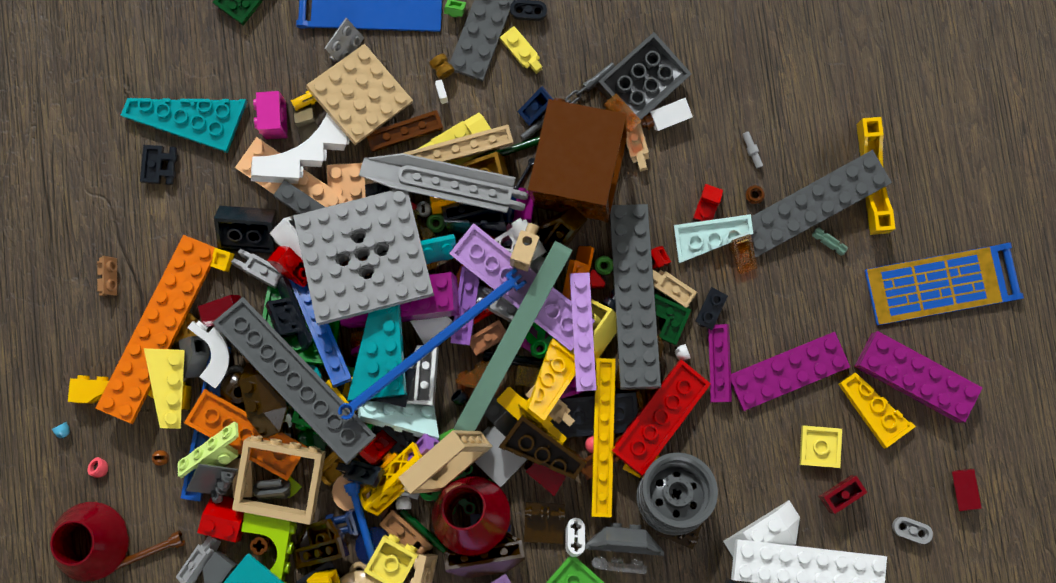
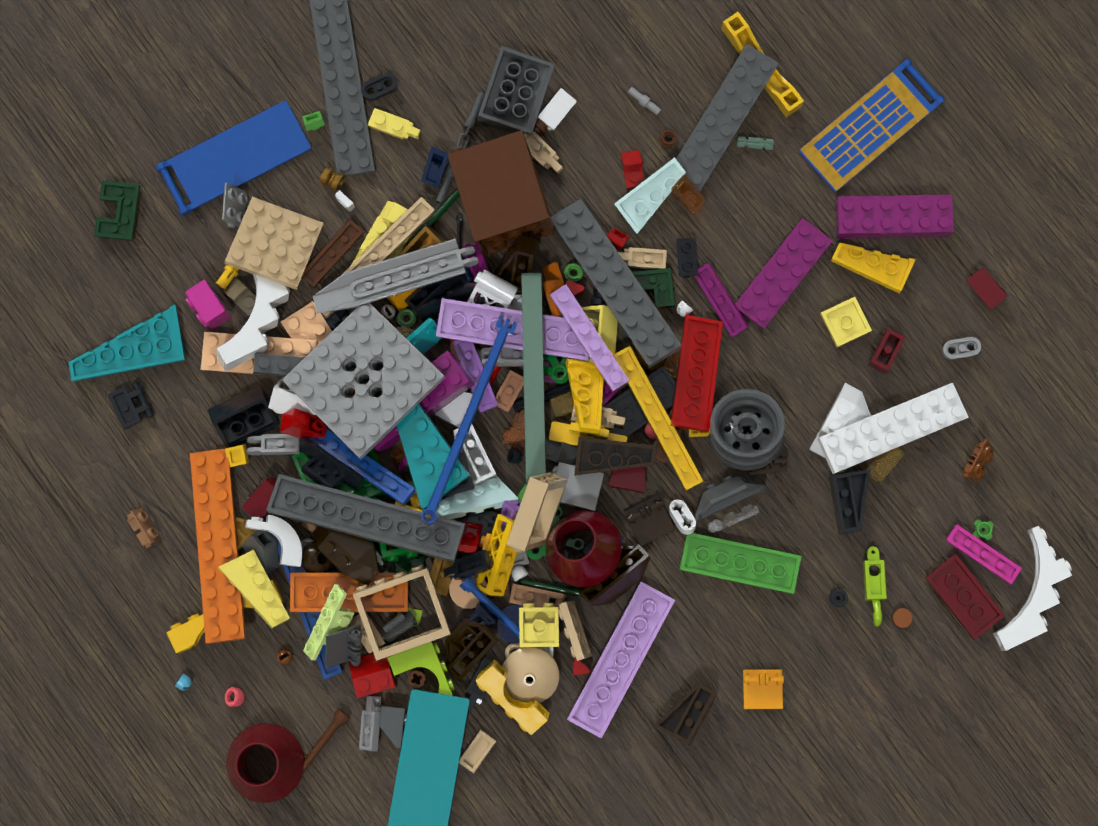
camera: 30 degrees left, 0 degrees up
(523, 254) = (500, 299): tan torso -> none
(618, 105) = (507, 127): clear orange hinge -> none

